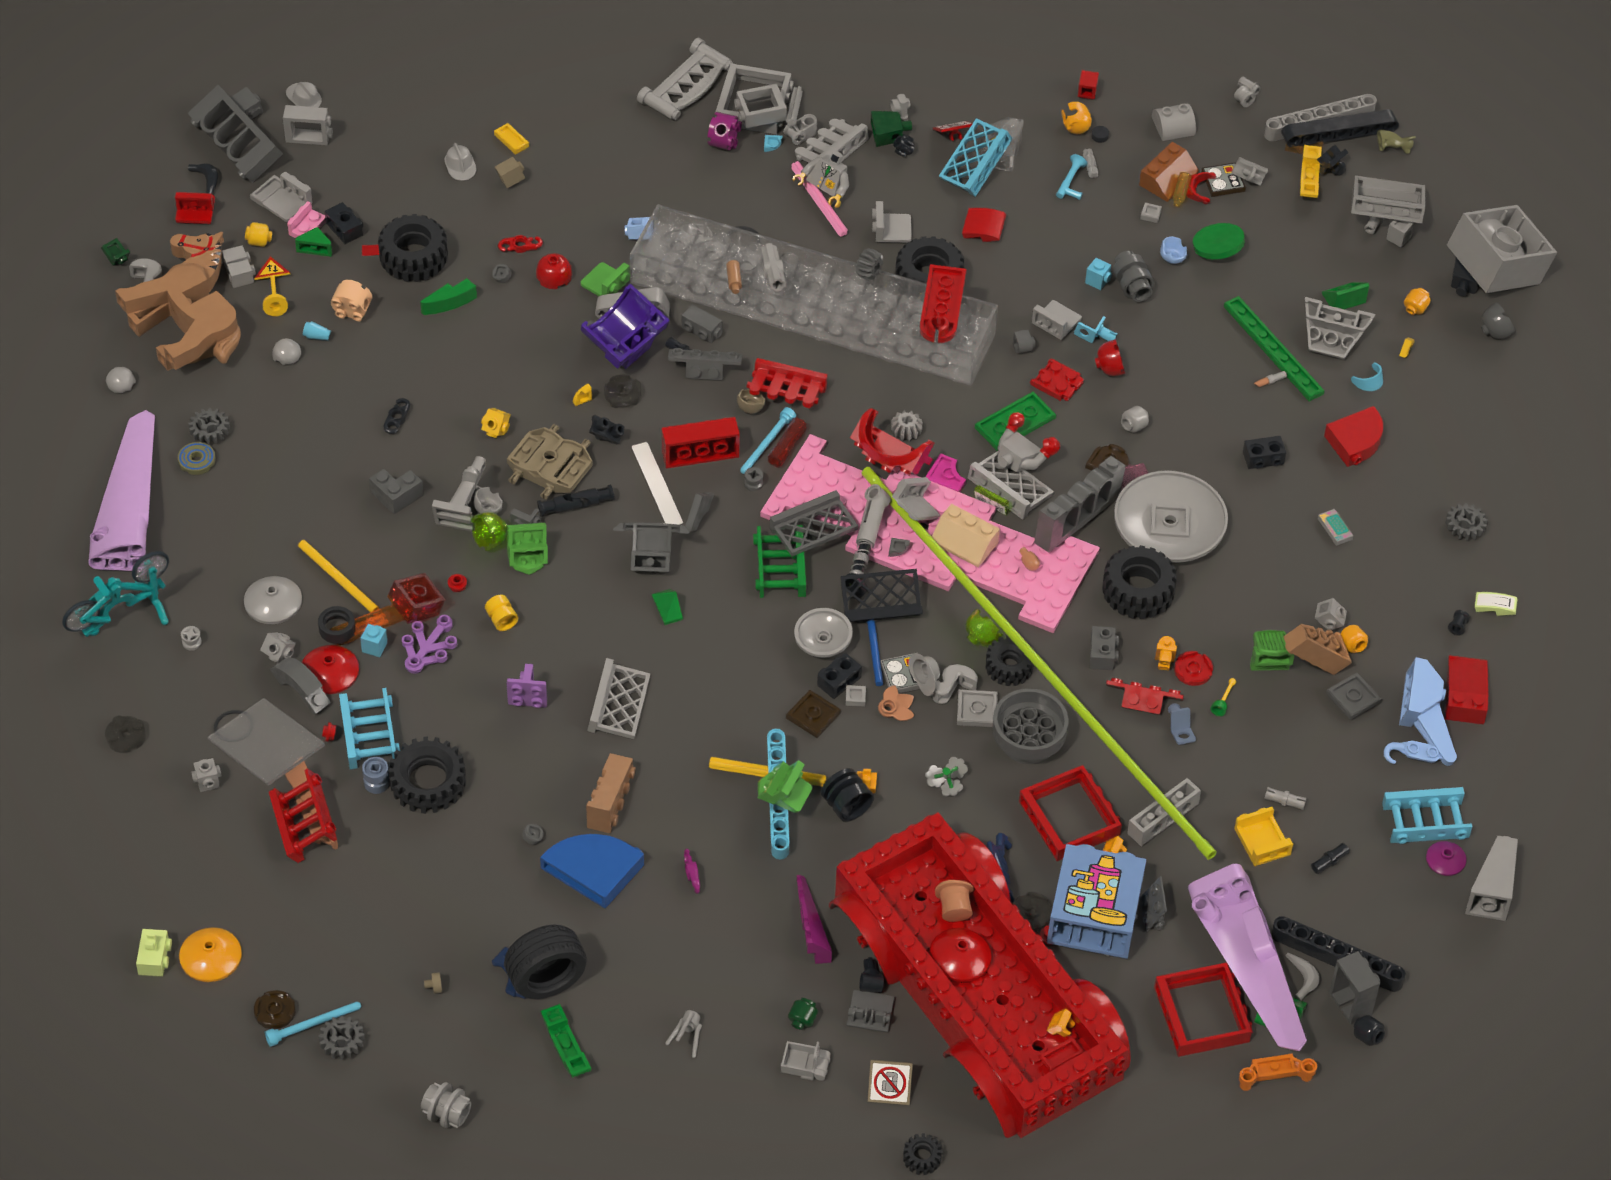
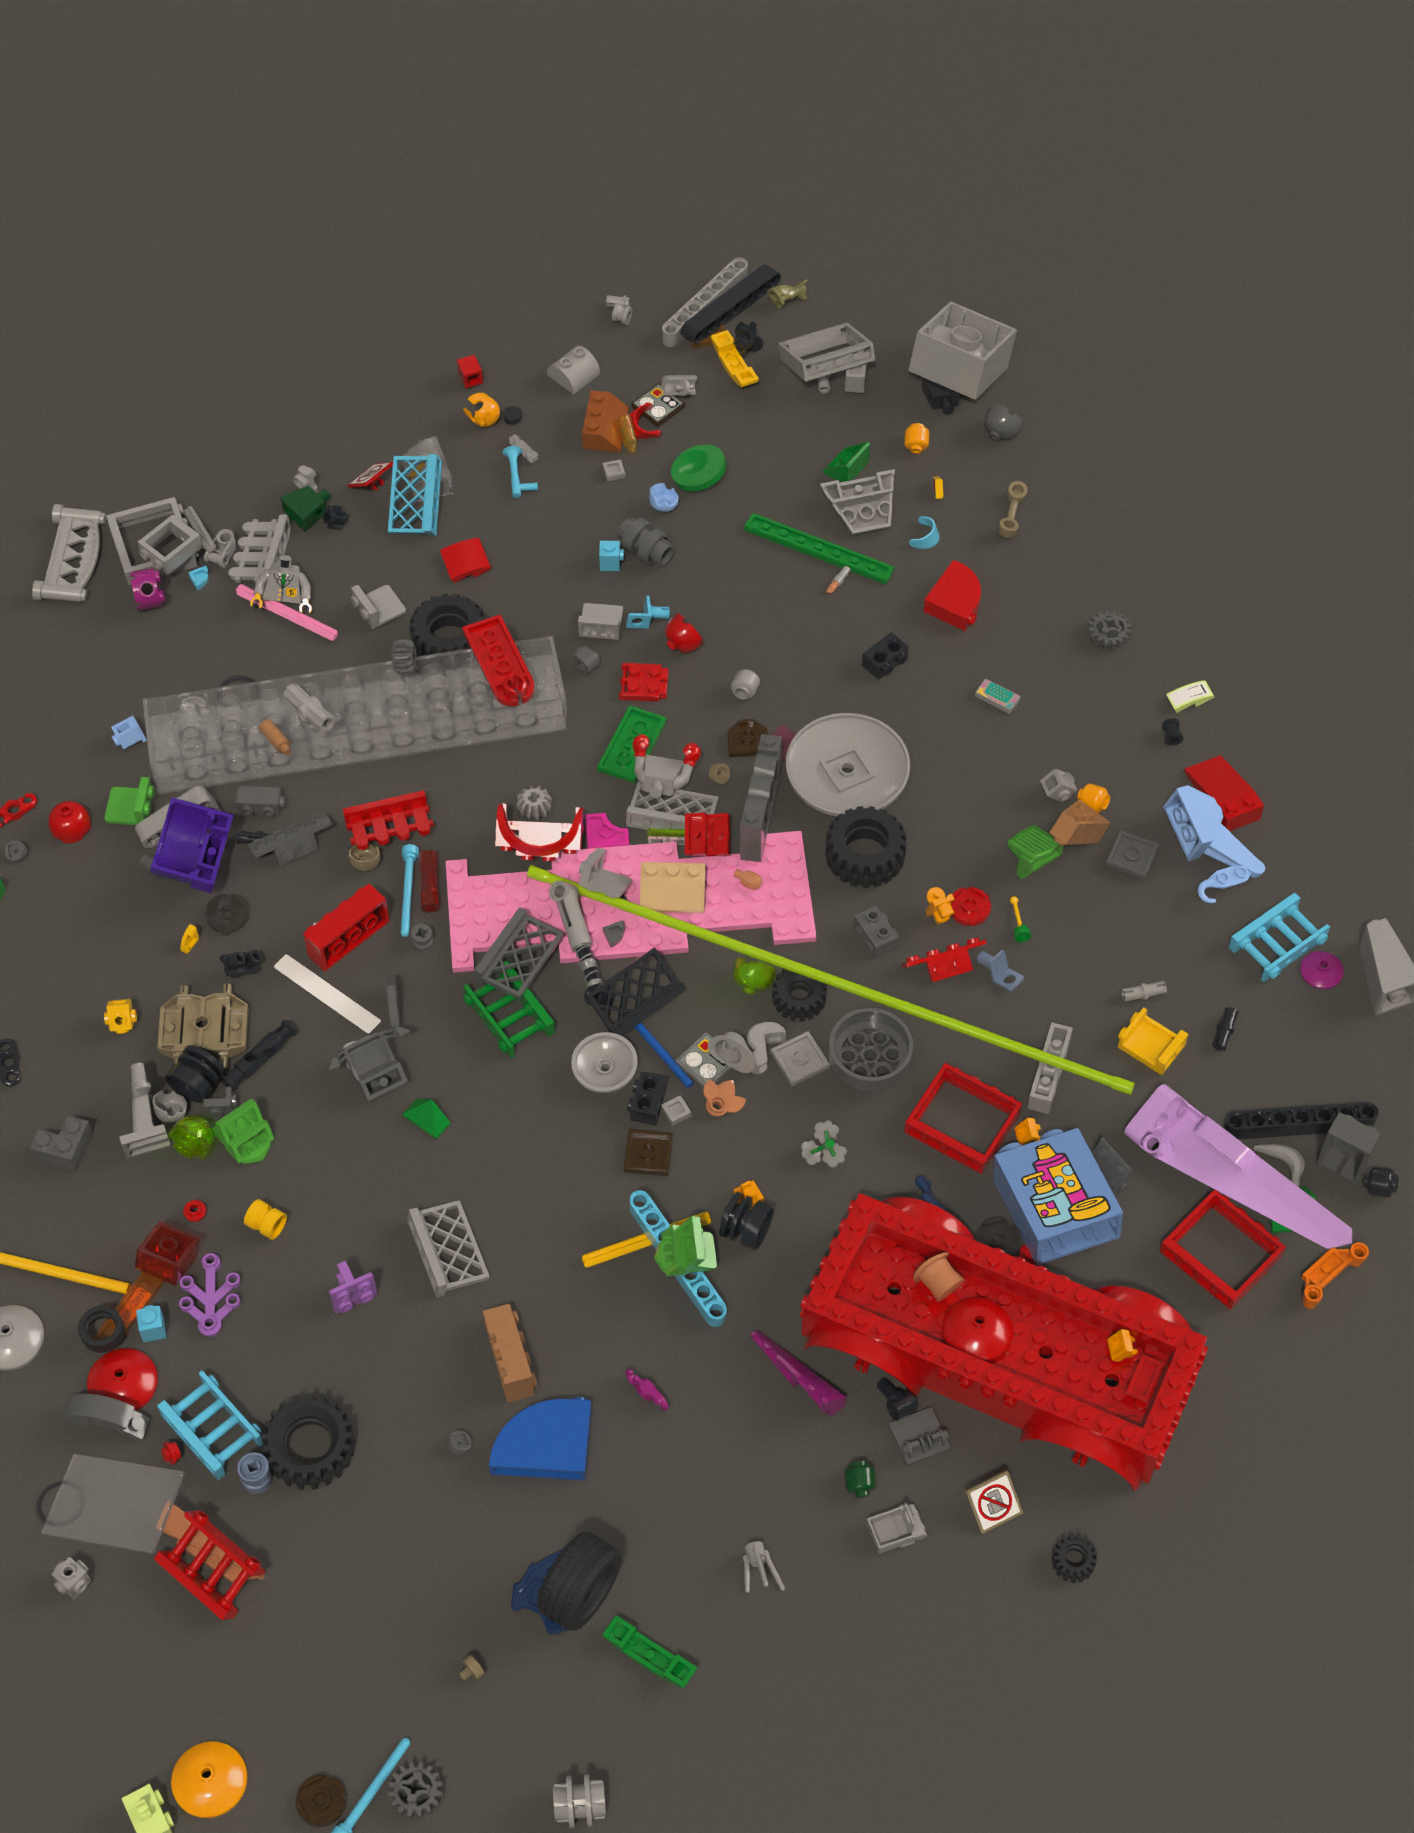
camera: 30 degrees left, 5 degrees up
(277, 646) = (53, 1388): light grey brick -> none
(519, 488) = (194, 1074): none -> black wheel
(1019, 511) = (707, 834): none -> red slope
(1066, 474) = (719, 773): none -> dark tan tile
(1469, 383) = (1016, 494): none -> dark tan piece

